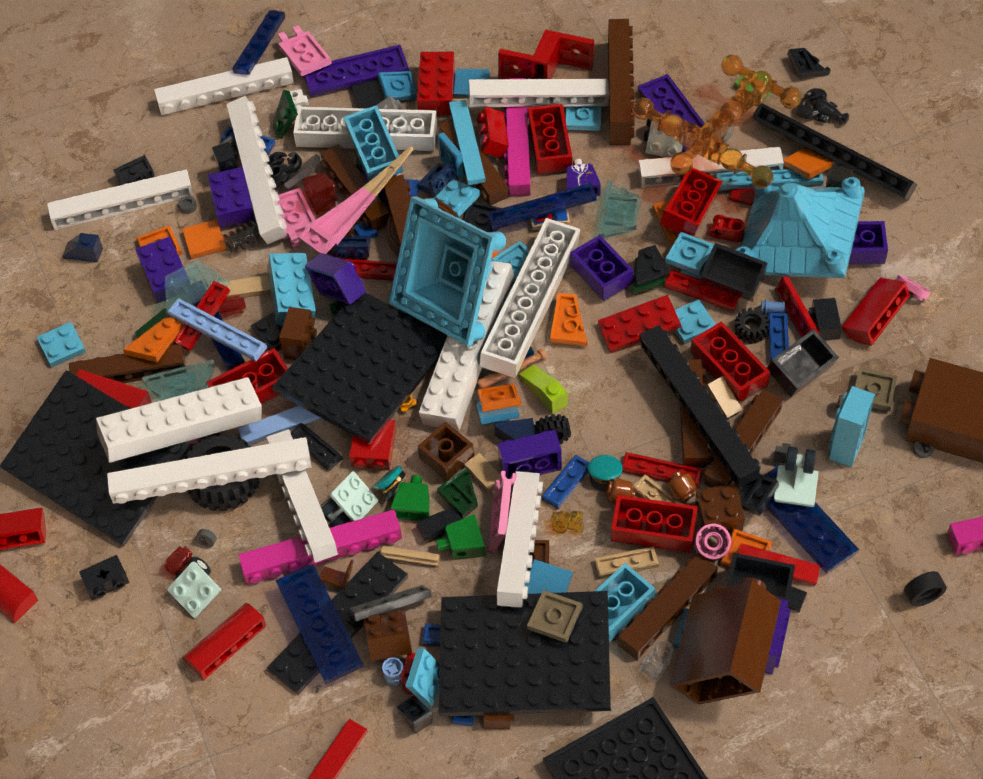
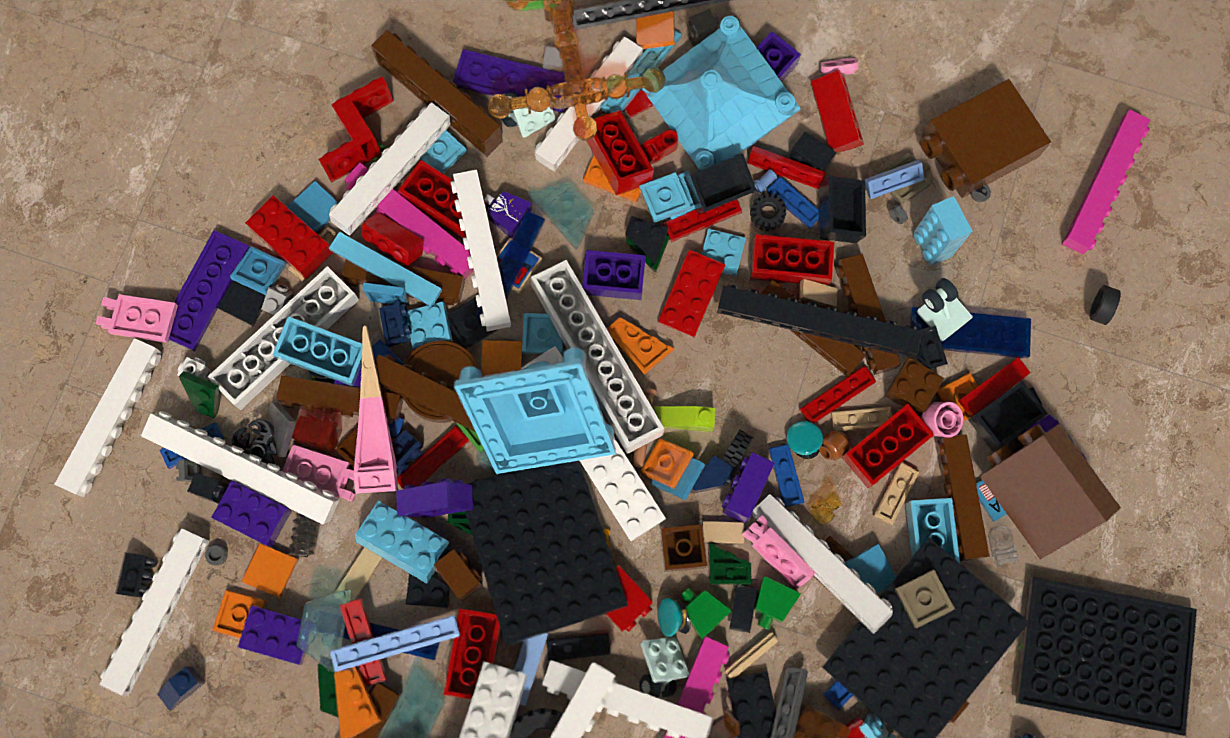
camera: 55 degrees left, 20 degrees up
(232, 306) = (372, 603): clear red brick -> none
(259, 42) = (89, 347): clear blue plate -> none
(533, 177) = (482, 251): none -> white brick
(682, 486) = (871, 396): dark orange head -> none
(780, 454) = (906, 296): dark grey tile -> none
(863, 377) = (894, 179): none -> medium blue plate

